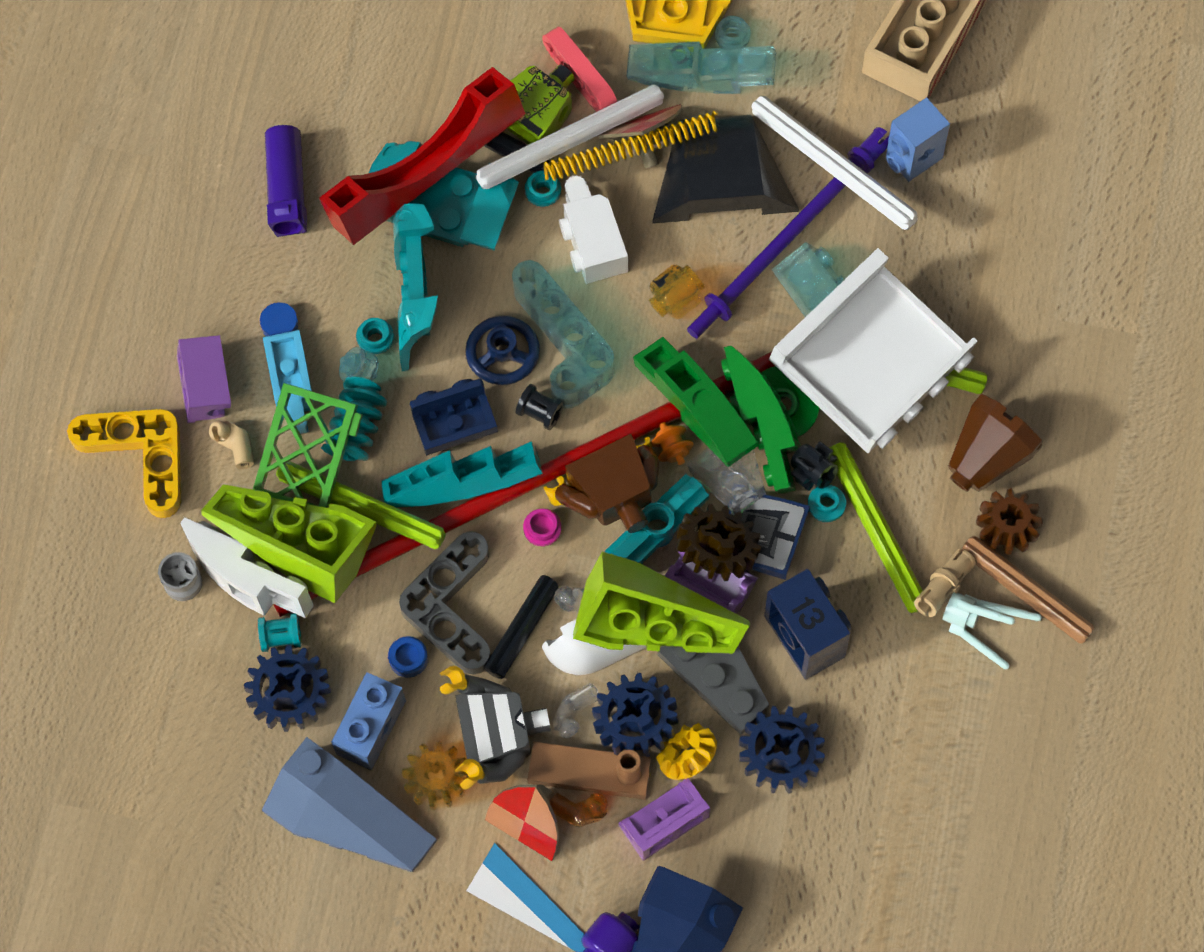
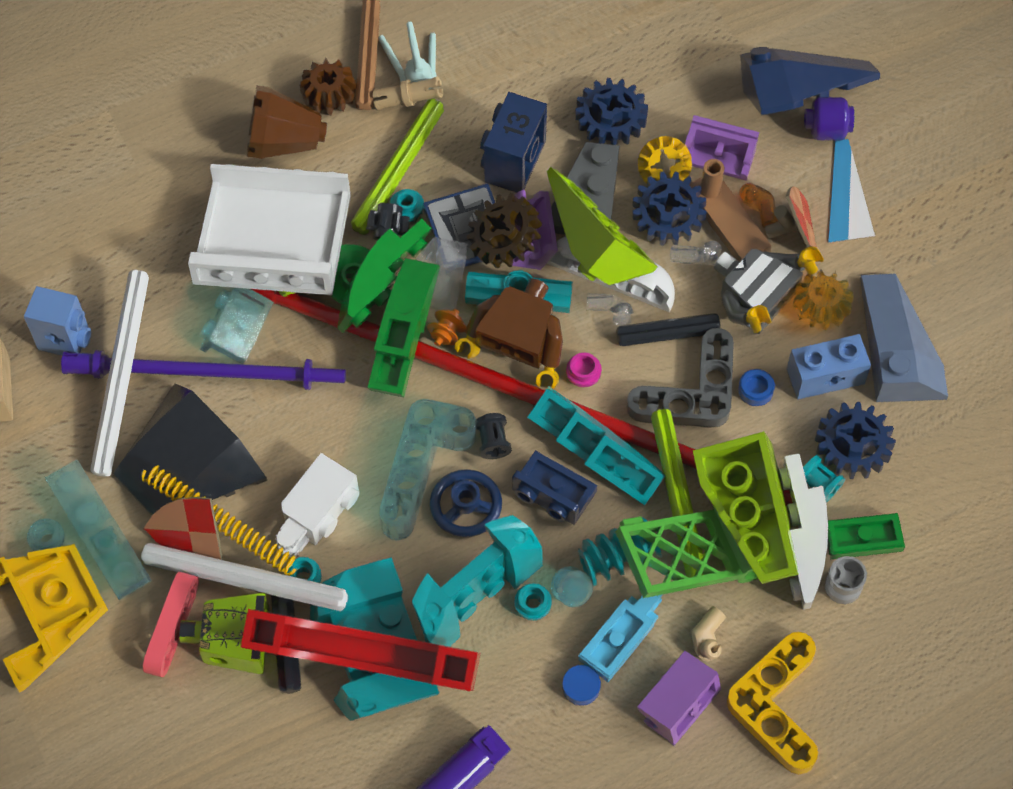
camera: 130 degrees left, 5 degrees down
(203, 626) = (865, 536): none -> green plate
(676, 292) = (320, 408): clear yellow head -> none

